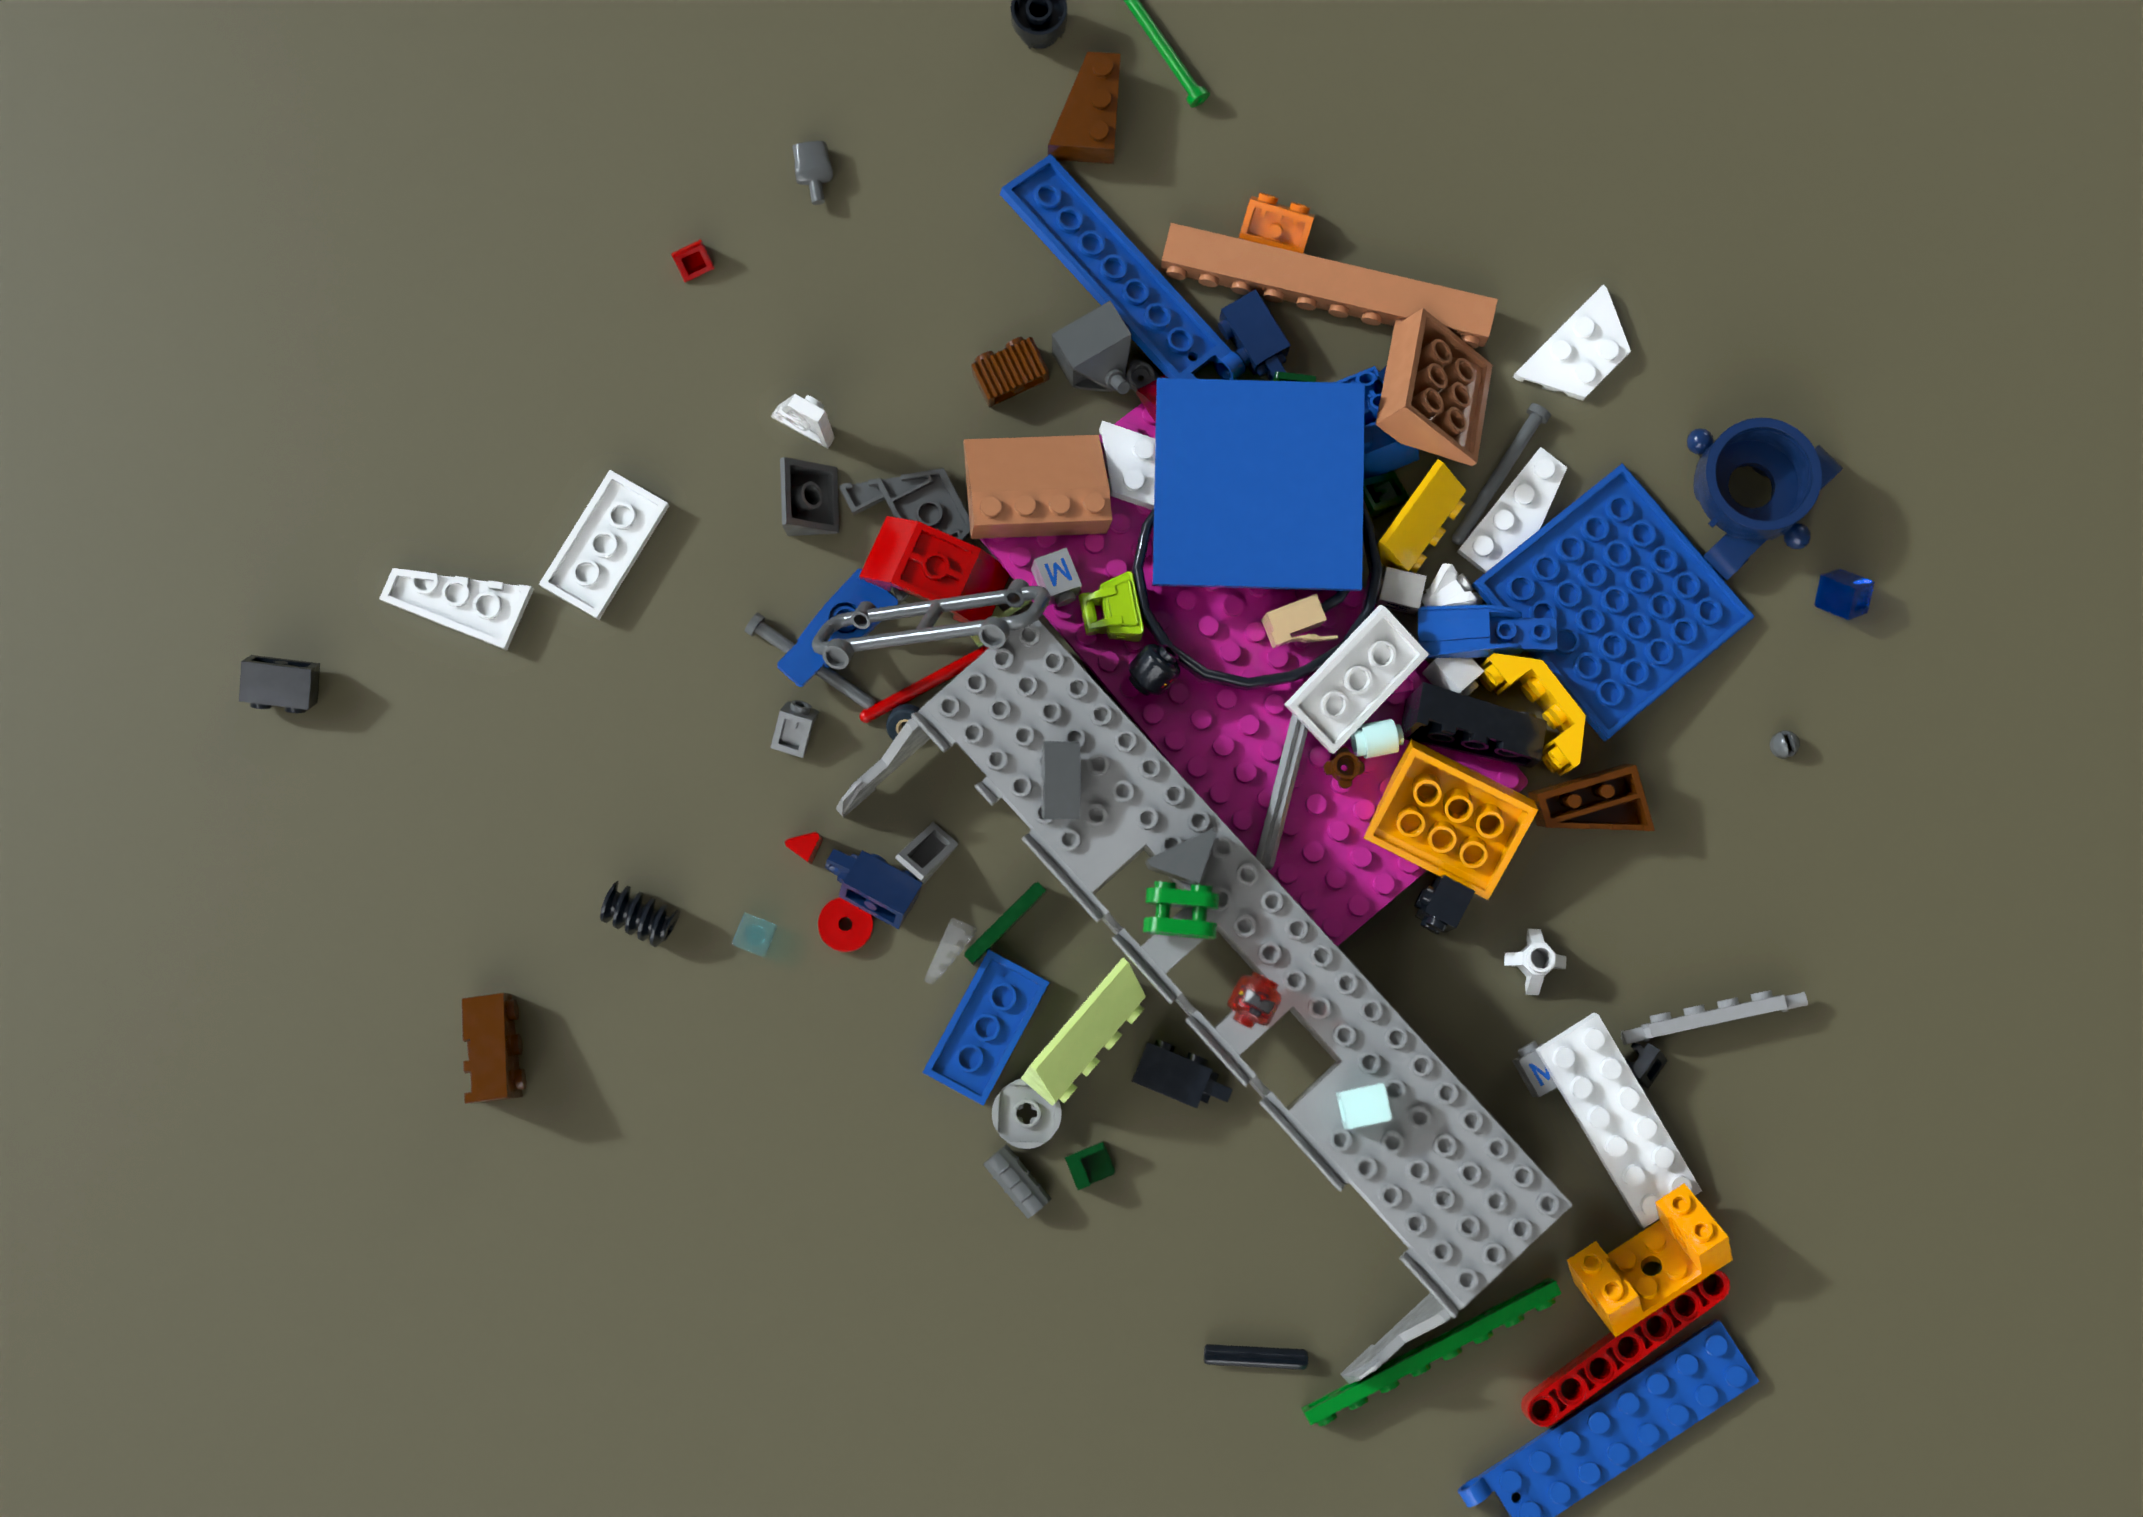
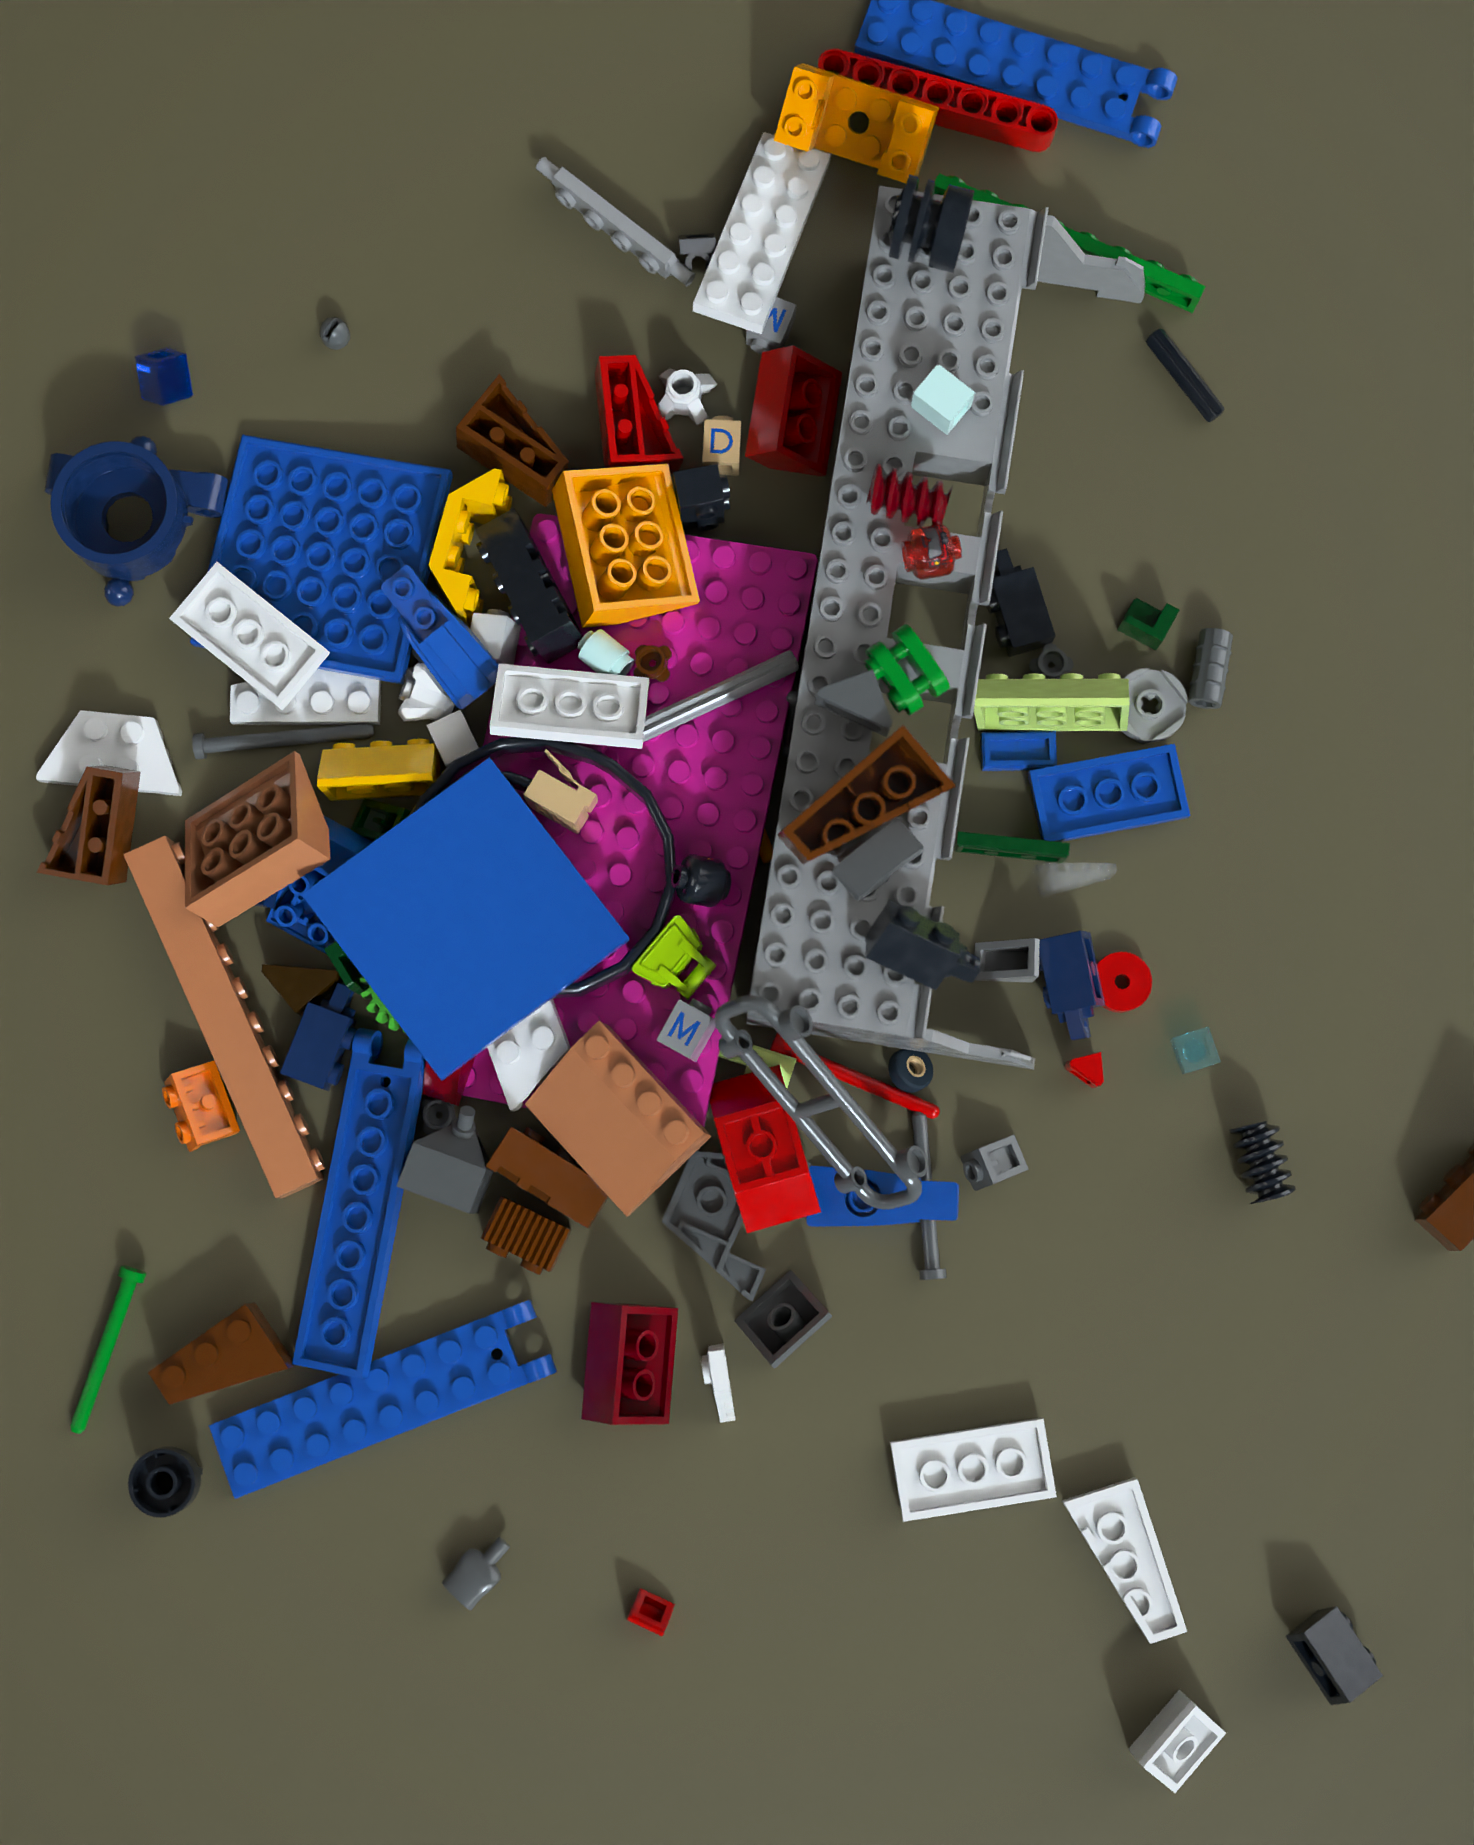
camera: 130 degrees left, 0 degrees up
(317, 534) = (1176, 1741): none -> white slope
(865, 372) = (629, 1364): none -> dark red slope
(971, 207) = (356, 1413): none -> blue hinge
(975, 760) = (918, 947): none -> black hinge
(1041, 414) = (548, 1175): none -> reddish brown wedge
(1071, 990) = (1018, 750): none -> blue tile
(1110, 809) = (875, 791): none -> reddish brown wedge
(1122, 1073) = (1051, 654): none -> dark grey plate
(1307, 1017) = (907, 497): none -> dark red piece
(1310, 349) = (301, 984): none -> dark brown slope
(1461, 1029) = (793, 412): none -> red slope
(1474, 957) = (722, 444): none -> tan brick
(1505, 1204) = (930, 223): none -> black wheel
(1530, 294) = (96, 828): none -> reddish brown wedge
(1543, 902) = (629, 417): none -> red wedge
(1592, 503) = (249, 635): none -> white plate

